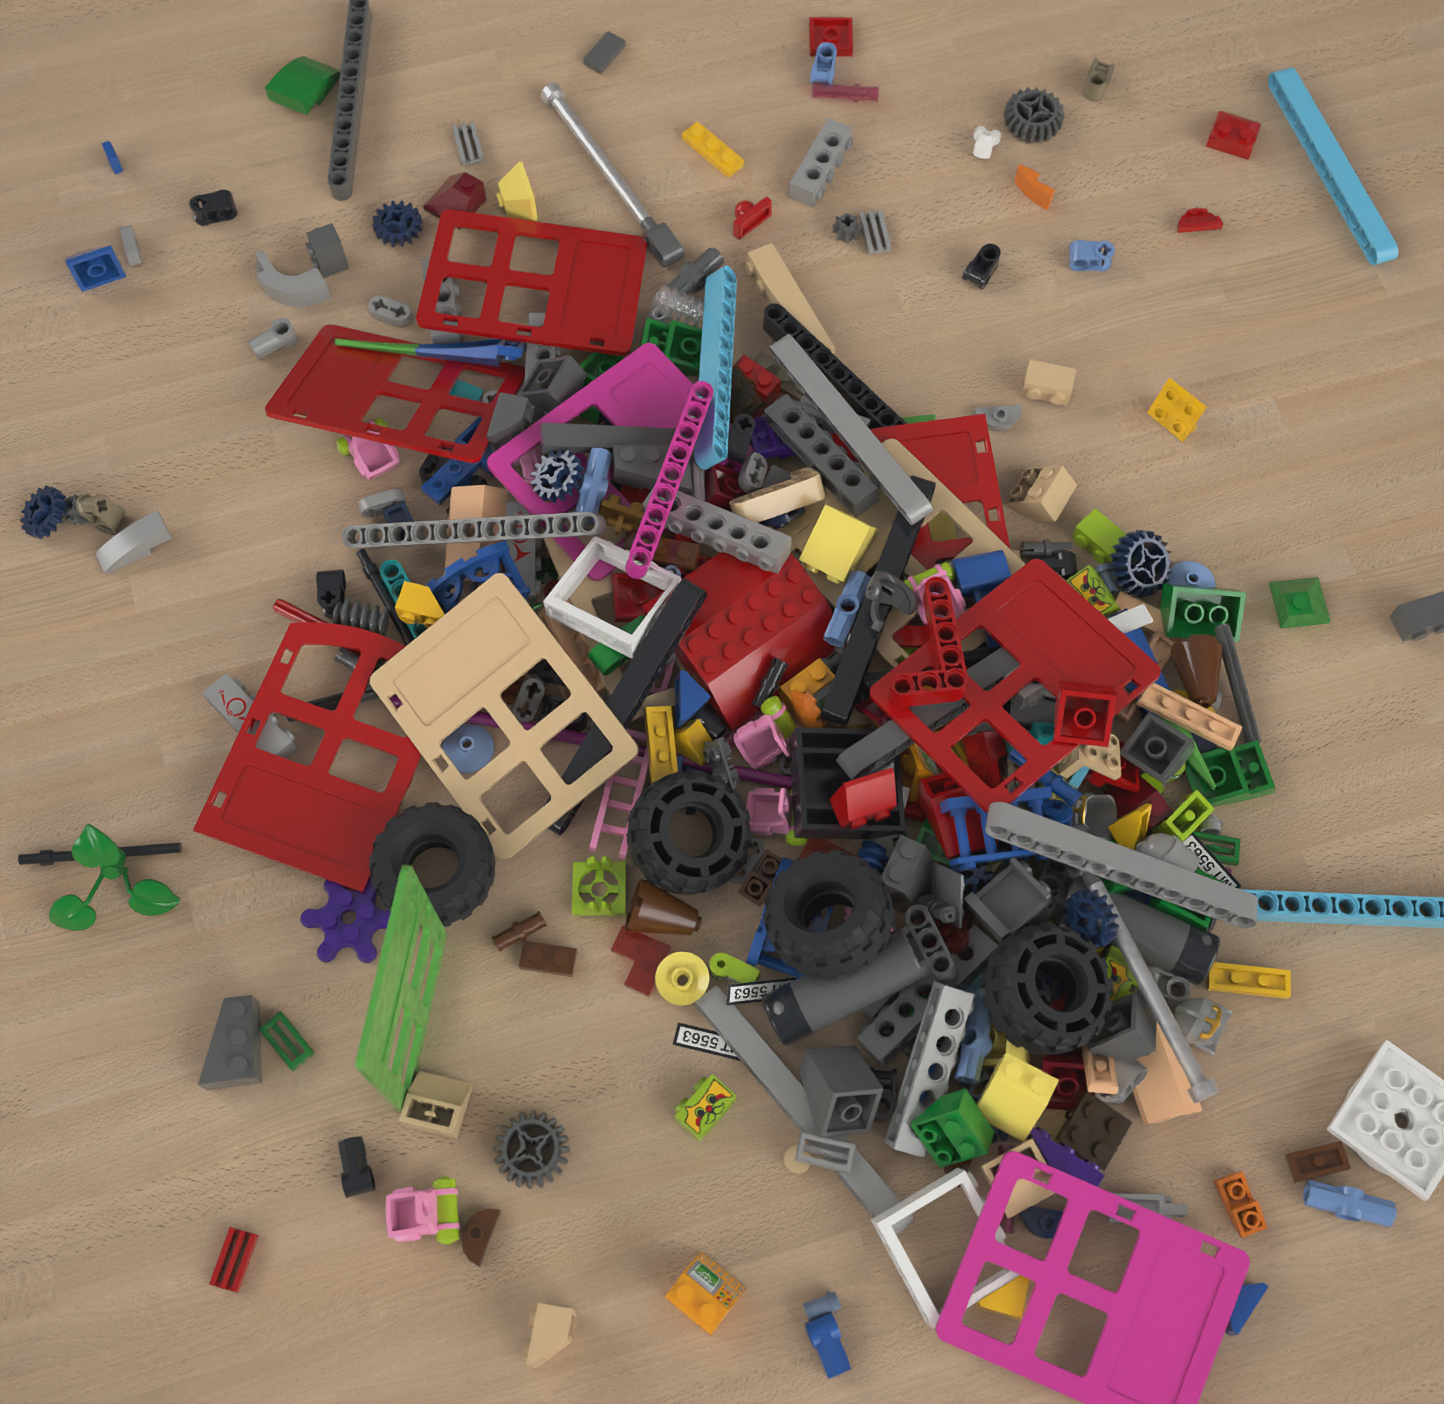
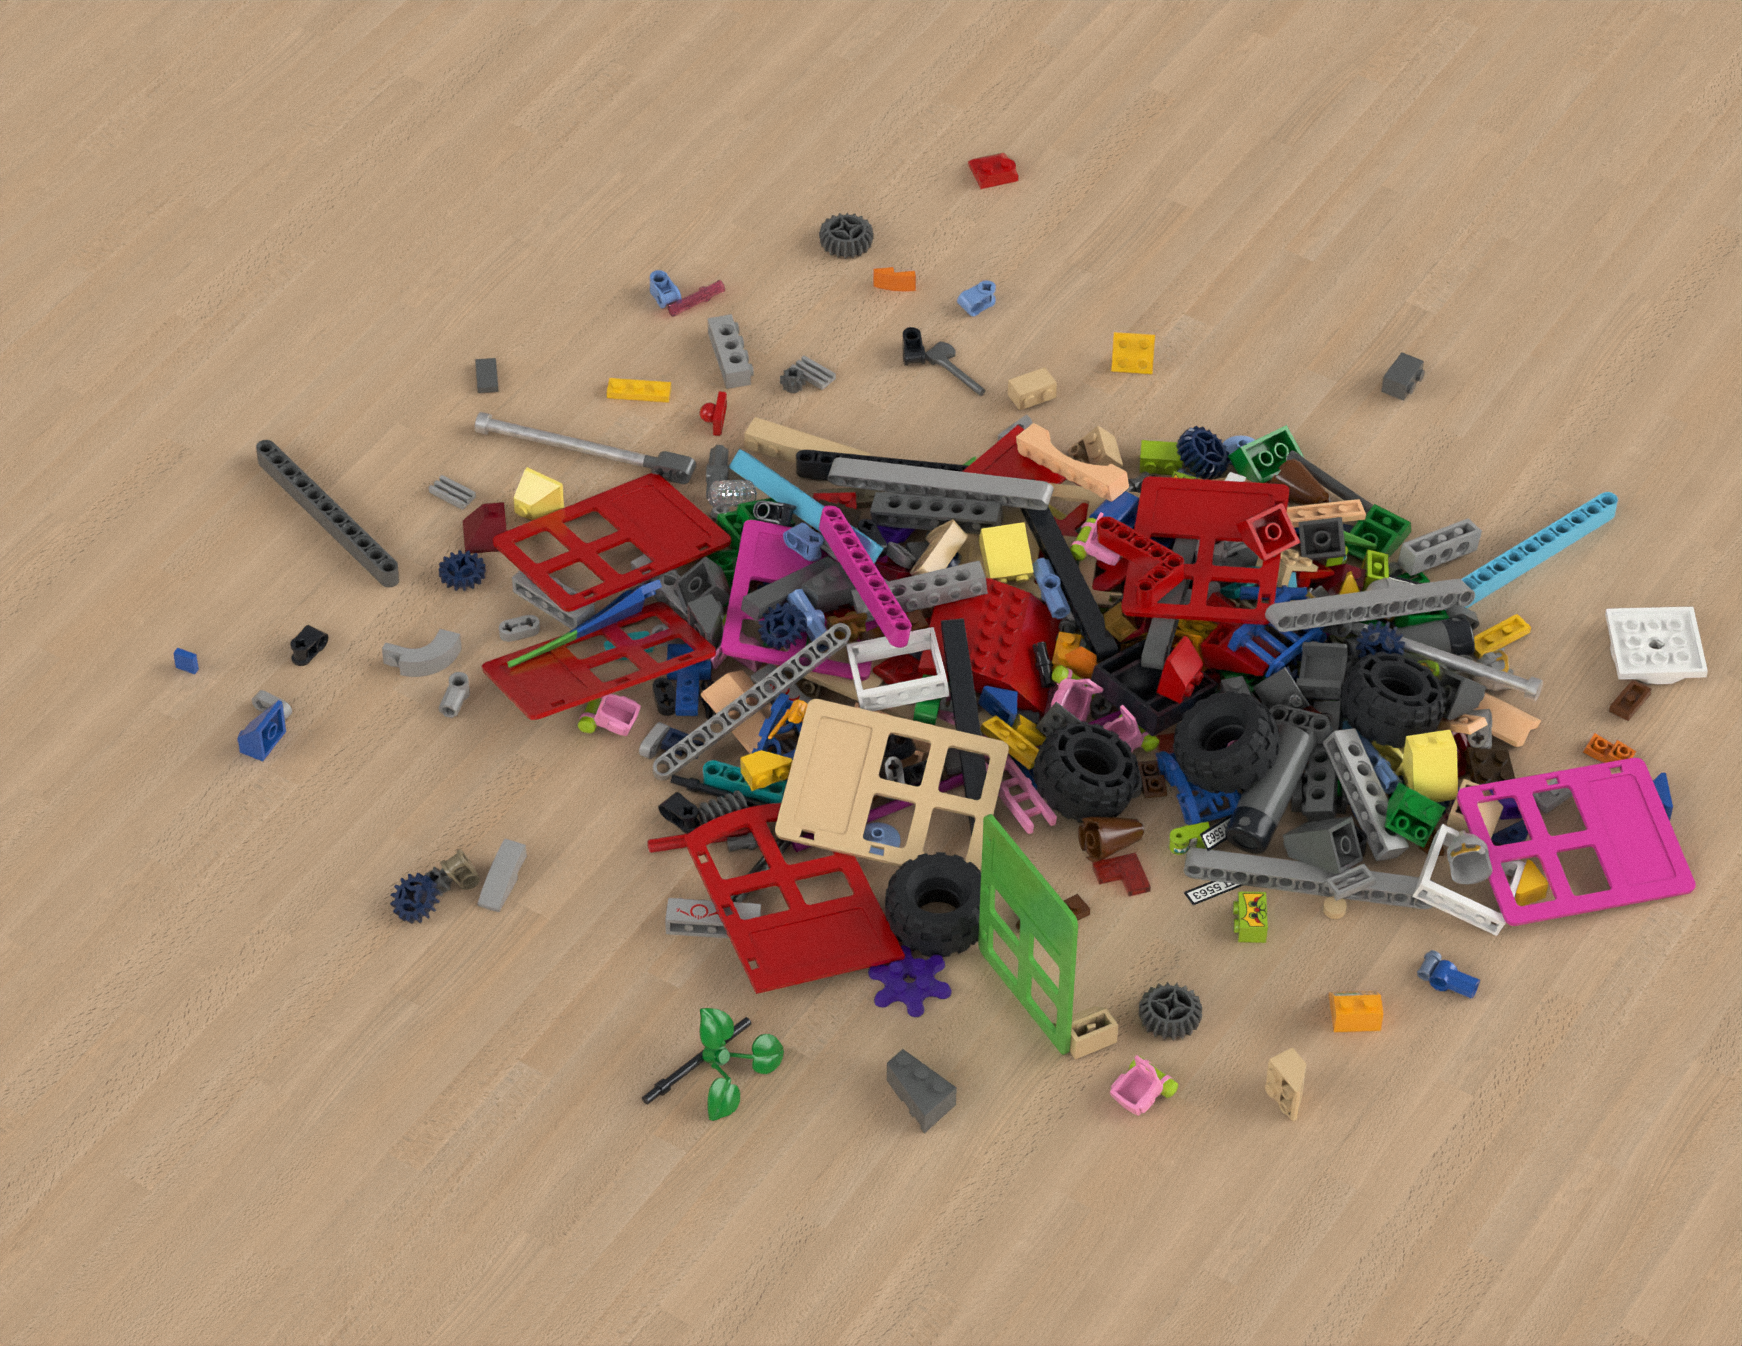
camera: 40 degrees left, 20 degrees down
(232, 1232) = (1041, 1183): red tile -> none
(300, 1058) = (951, 1075): green tile -> none
(302, 84) = (280, 528): green slope -> none
(326, 250) = (435, 612): dark grey brick -> none
(356, 1175) = (1077, 1101): black piece -> none
(477, 1234) = (1187, 1078): reddish brown plate -> none
(487, 571) = (795, 714): none -> light orange plant
(599, 907) = (1066, 864): lime piece -> none
(674, 397) = (804, 541): none -> medium blue piece
(677, 966) = (1162, 862): light yellow dish -> none
(683, 352) = (777, 513): none -> black piece
(832, 30) = (639, 267): red tile -> none
(861, 696) = (1119, 624): none -> pearl gold brick
(901, 597) = (1081, 553): dark grey helmet -> none
(949, 1236) = (1469, 859): none -> light grey helmet
(985, 141) = (831, 271): white plate -> none
(993, 535) = (1105, 481): none -> light nougat arch
(1004, 288) = (940, 354): none -> dark grey piece
(1097, 80) = (866, 188): dark tan piece -> none
(1198, 220) = (1026, 235): red plate -> none
(1228, 935) = (1462, 611): none -> dark grey beam
(1277, 837) = (1439, 546): none -> light grey brick
(1299, 602) = (1319, 419): green slope -> none
(1333, 166) = (1079, 150): medium azure beam -> none
(1349, 1203) = (1668, 708): medium blue piece -> none

